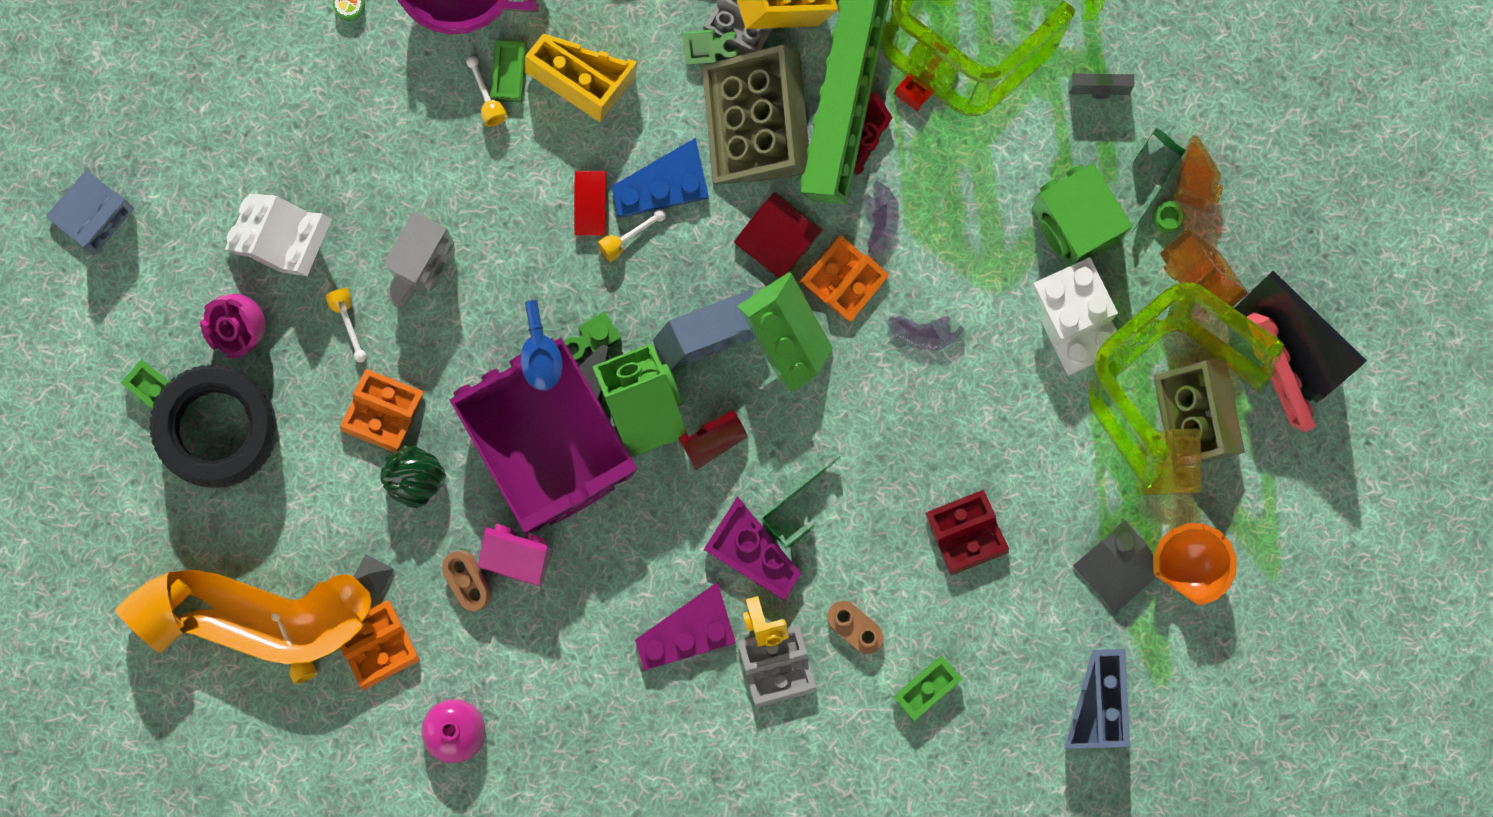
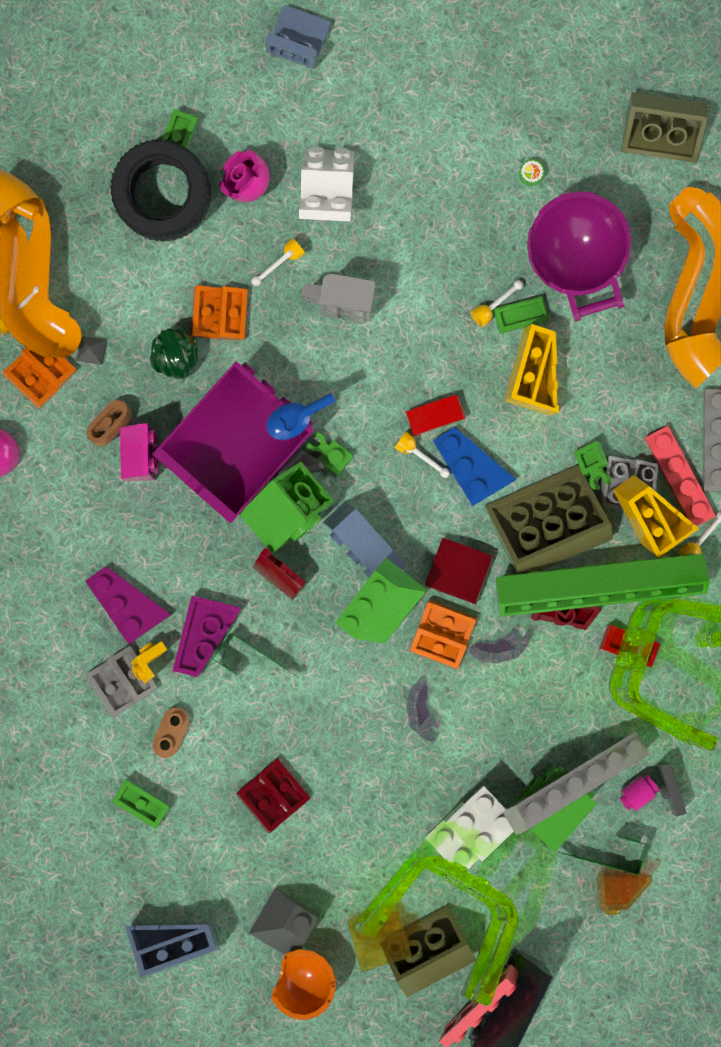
camera: 75 degrees right, 5 degrees up
(1064, 178) = (575, 783): none -> light grey arch
(1094, 121) = (638, 793): none -> dark pink brick
(1168, 217) = (581, 877): bright green tile -> none
(1199, 263) = (540, 920): clear orange brick -> none

